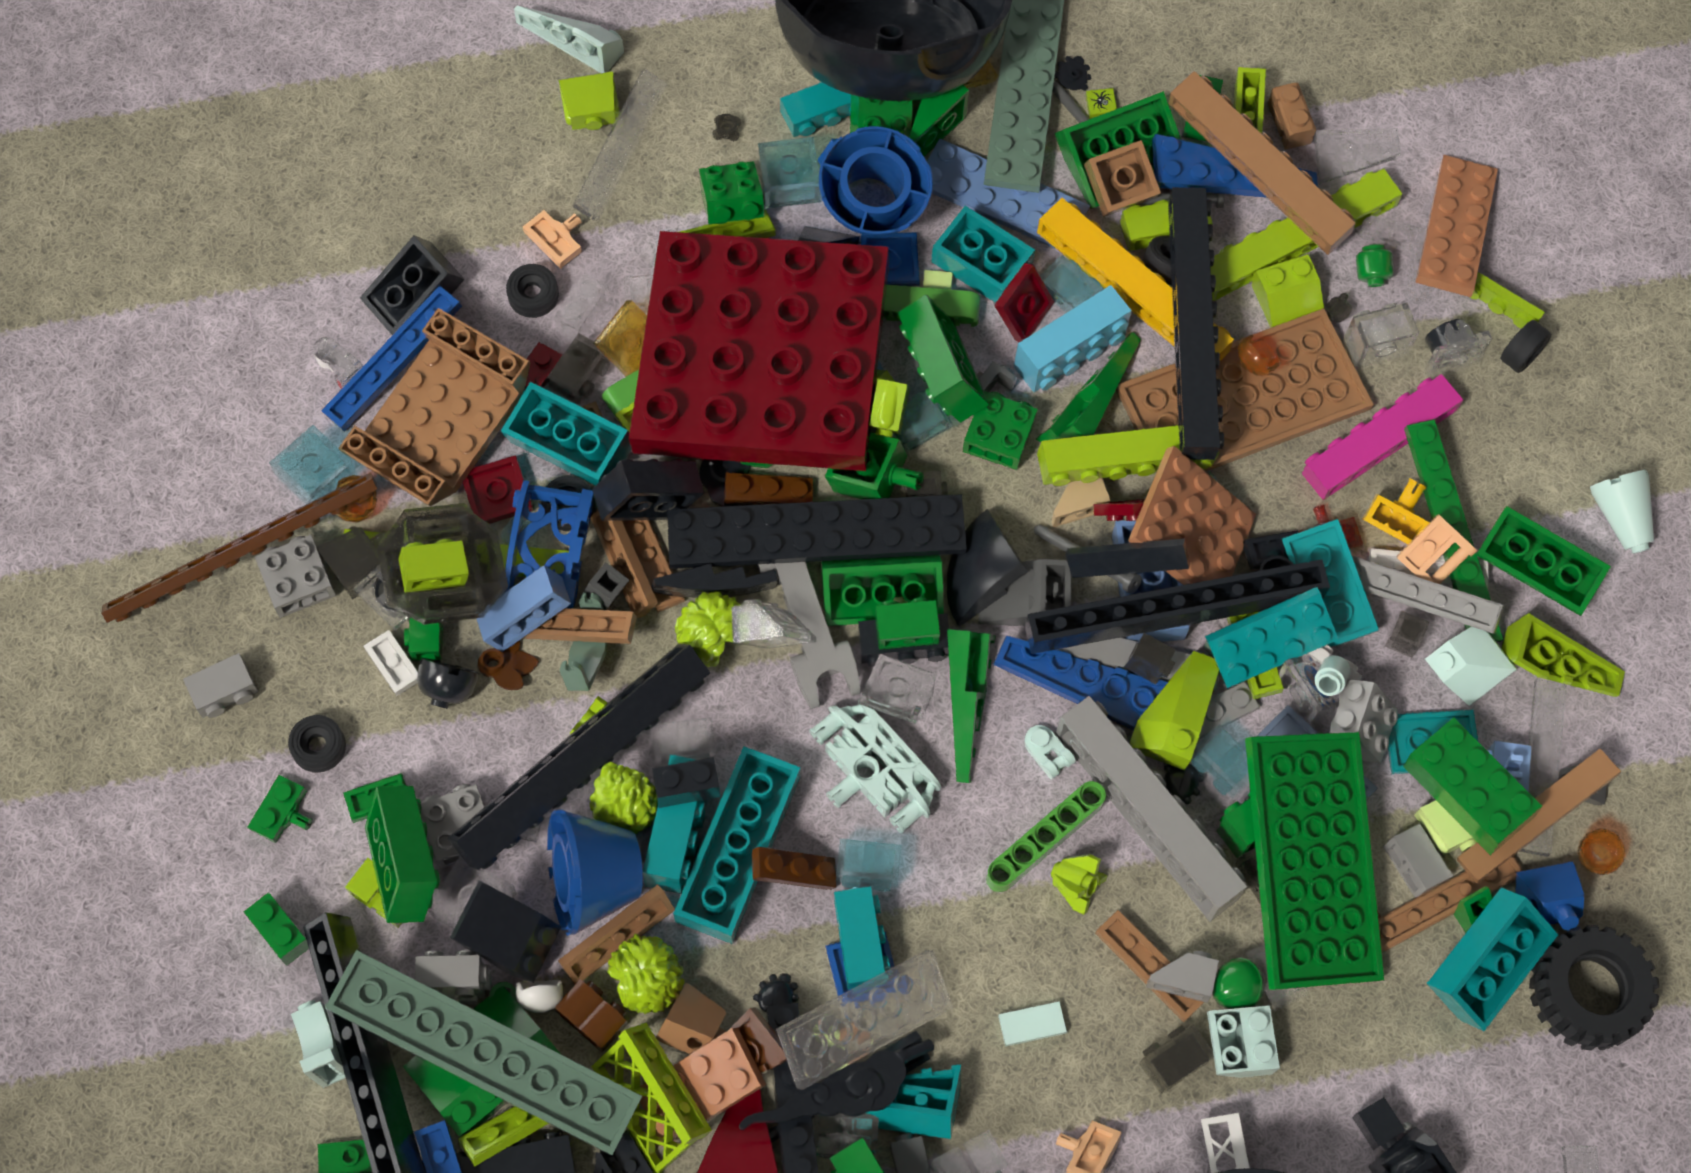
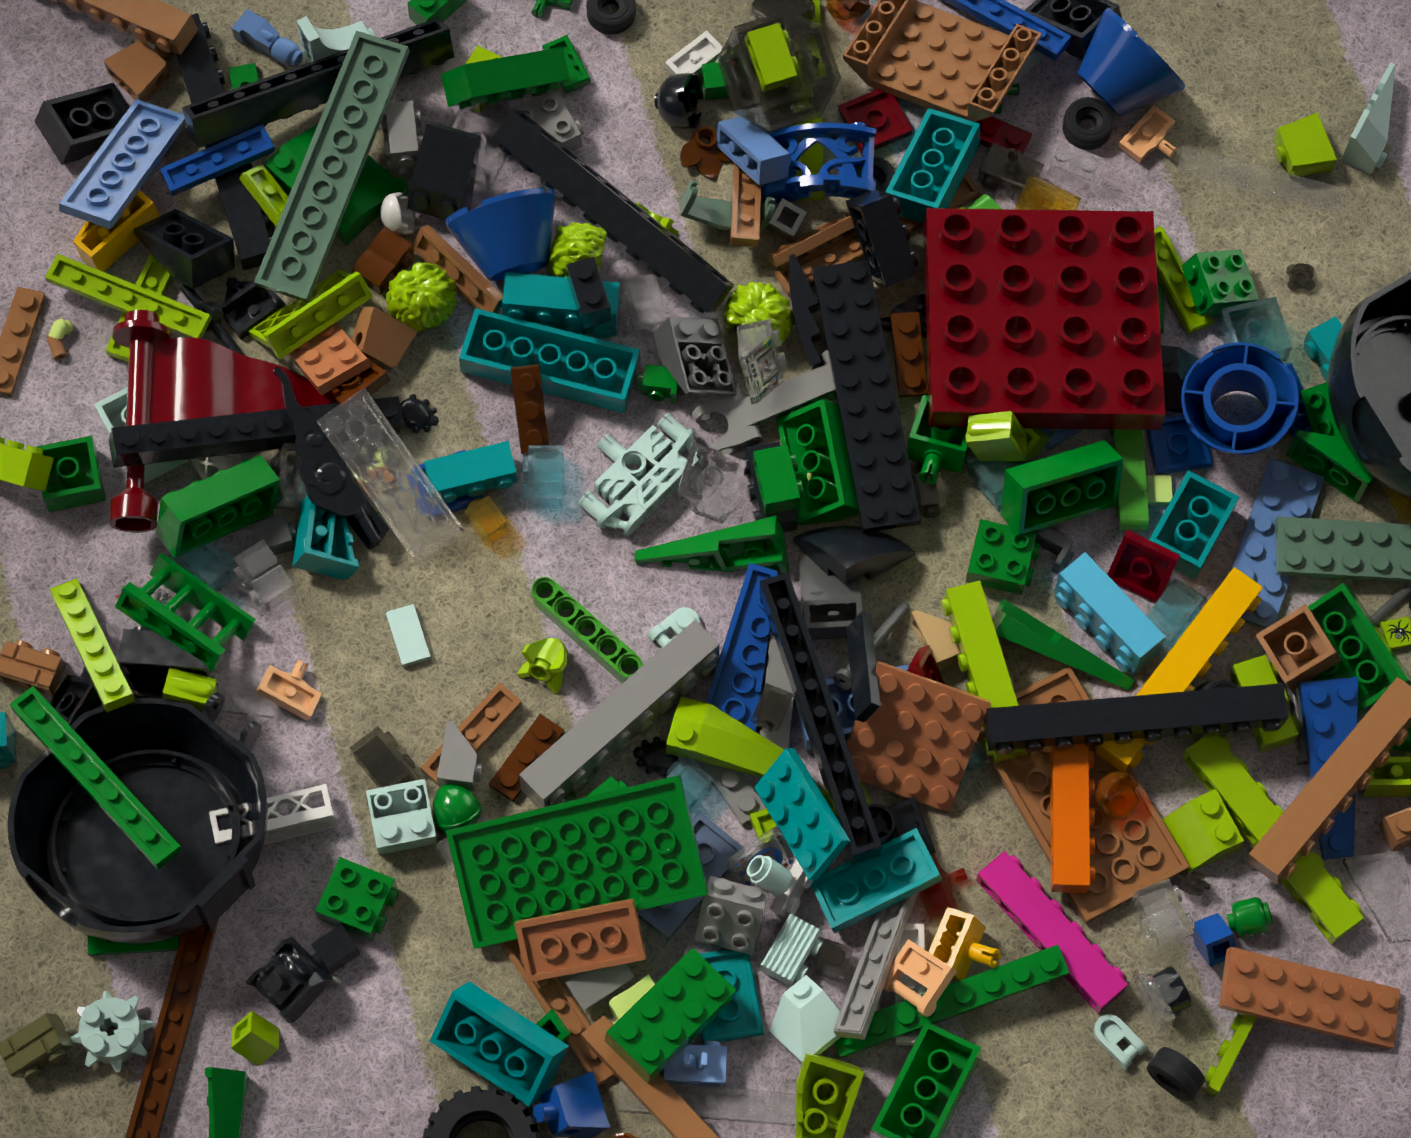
camera: 85 degrees right, 0 degrees up
(291, 1127) = (266, 39): none -> medium blue piece
(486, 237) = (1125, 68): none -> blue cone
(758, 692) = (695, 355): none -> dark grey slope
(773, 734) = (658, 384): none -> green brick
(911, 929) = (486, 520): none -> clear yellow brick
(1176, 912) = (534, 743): none -> reddish brown plate
(1282, 401) = (1071, 819): none -> orange brick
(1327, 1096) = (357, 899): none -> green brick
(1392, 865) = (580, 940): none -> nougat plate
(1394, 673) = (792, 950): none -> light aqua brick
(1399, 291) = (1213, 939): none -> blue brick
(1480, 400) = (1110, 1031): none -> light aqua plate

